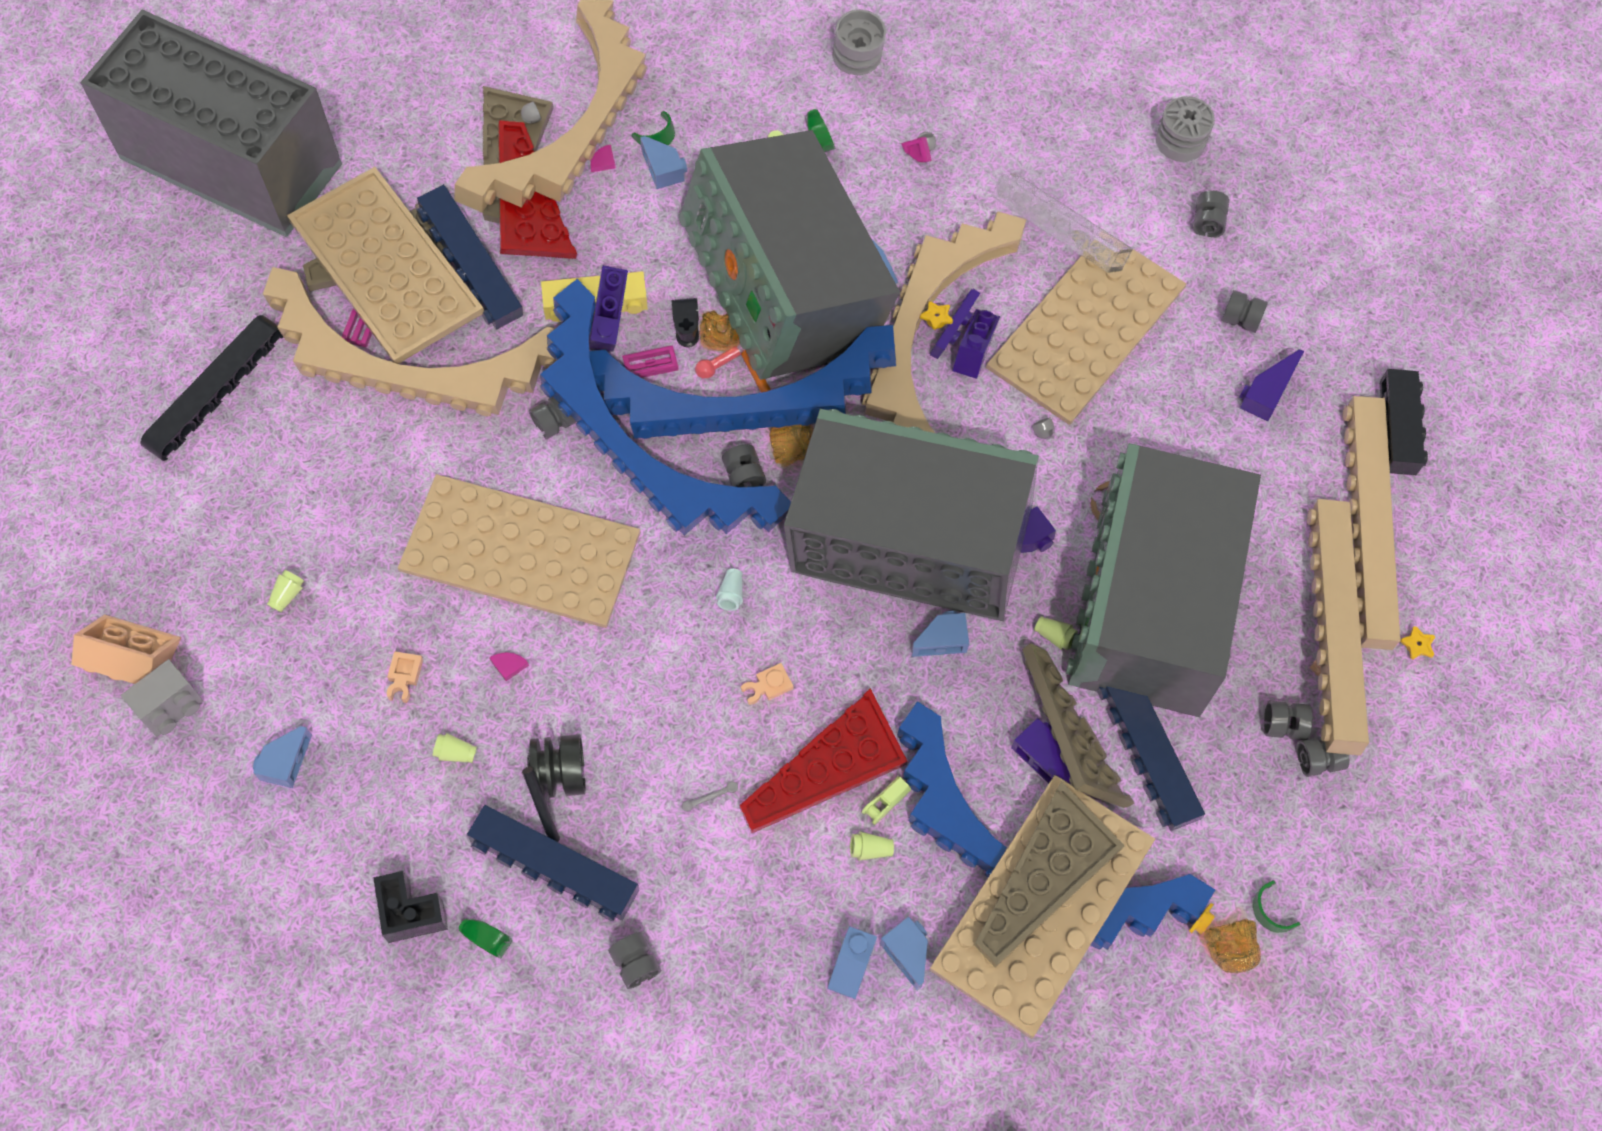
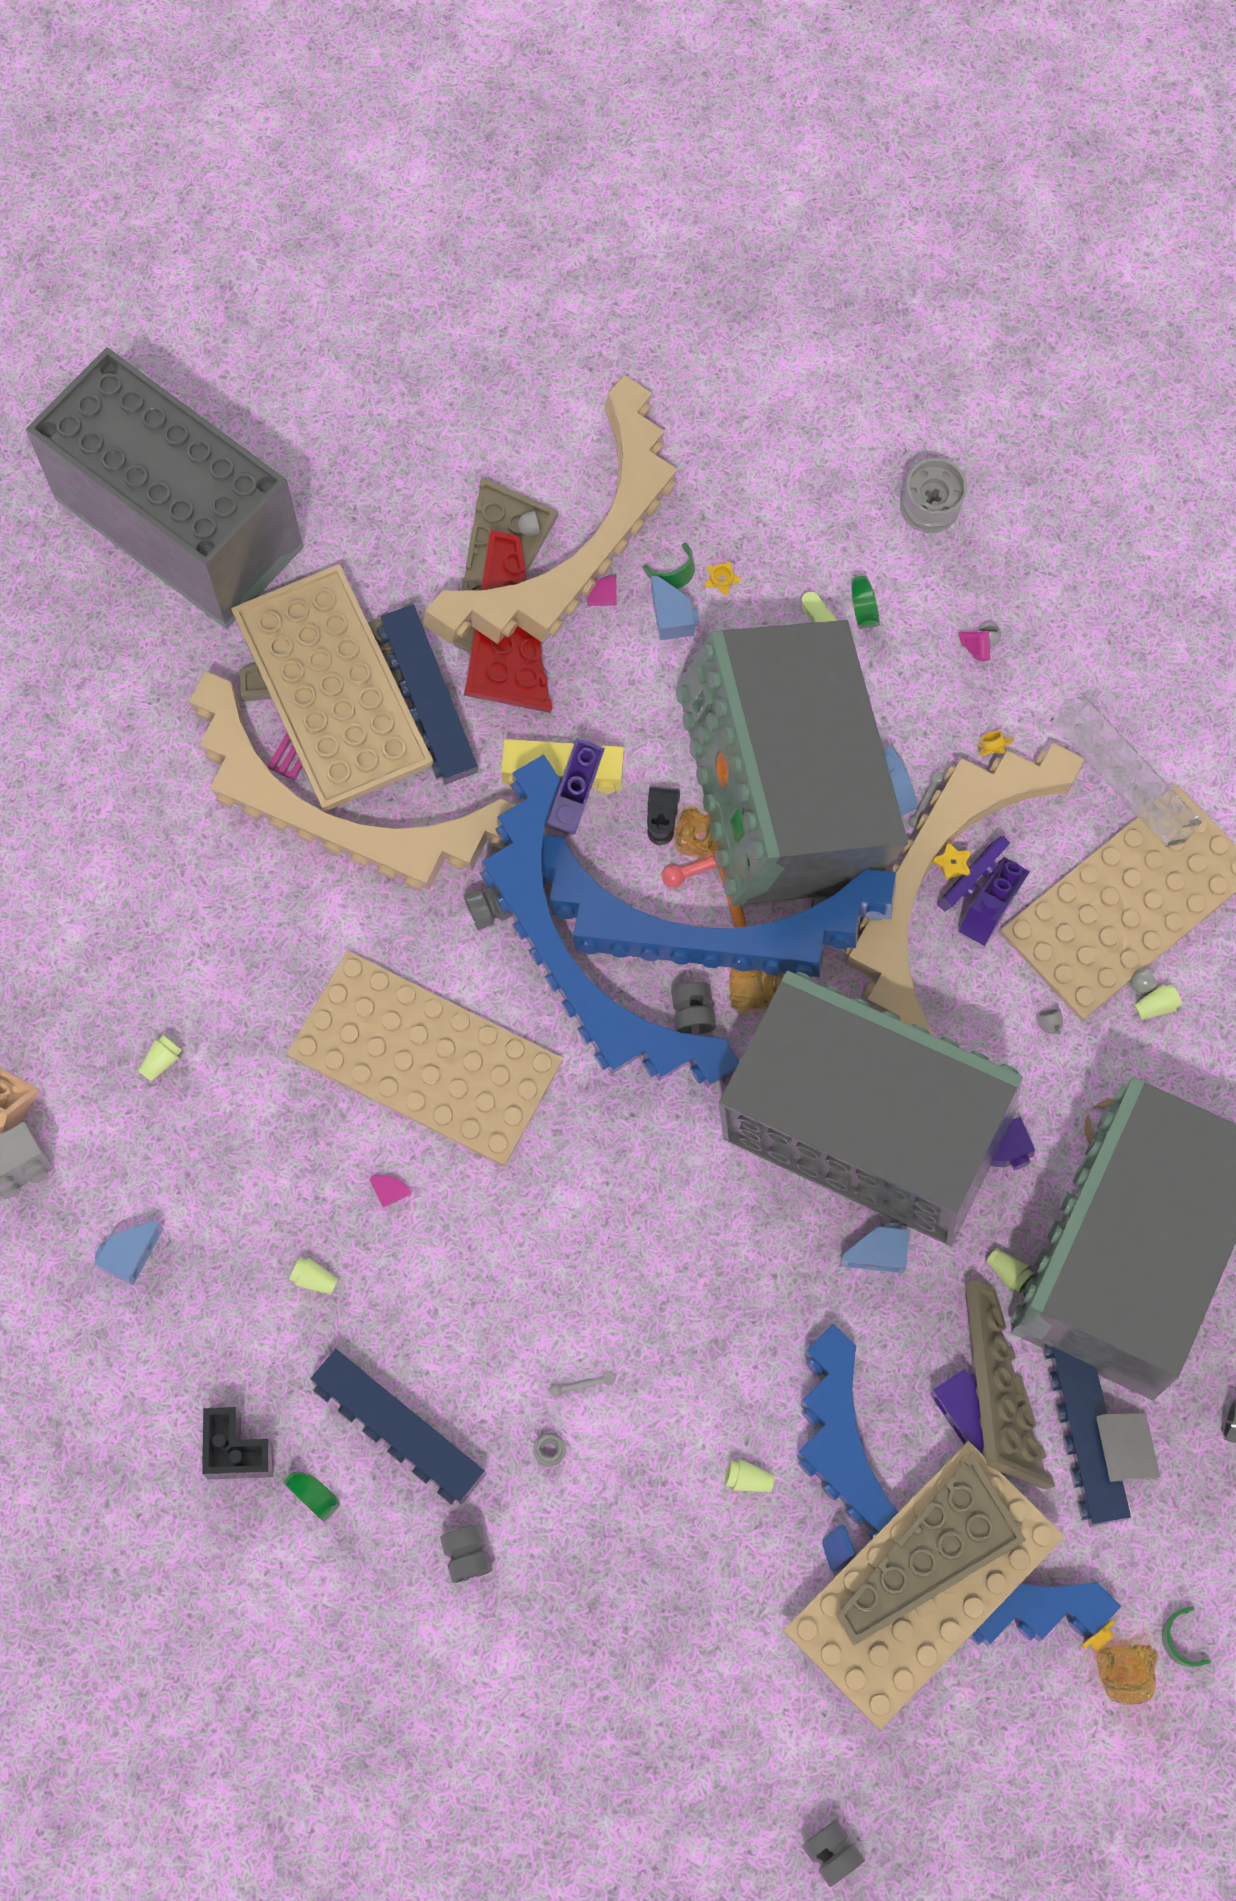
camera: 15 degrees right, 5 degrees up
(210, 387) = (115, 800): black beam -> none
(403, 671) = (274, 1177): light nougat plate -> none
(540, 803) = (395, 1361): black bar -> none
(558, 765) = (420, 1320): pearl dark grey wheel -> none
(673, 366) = (612, 868): dark pink tile -> none
(691, 848) = (542, 1441): none -> light grey plate
(697, 127) = (718, 570): none -> yellow plate
(731, 590) = (651, 1150): light aqua cone -> none
(770, 682) = (676, 1266): light nougat plate -> none
(837, 760) = (733, 1371): red wing -> none
(852, 962) = (701, 1604): medium blue slope -> none
(889, 797) = (781, 1424): yellowish green bar -> none
(908, 256) = (937, 778): none -> light grey hinge
(908, 950) = (765, 1601): medium blue slope -> none
(948, 221) = (993, 743): none -> yellow plate
(962, 890) = (838, 1548): none -> blue slope
(1113, 384) = (1143, 981): none -> light grey hinge
(1129, 398) = (1158, 1002): none -> yellowish green cone
(1189, 756) = (1128, 1447): none -> light grey tile

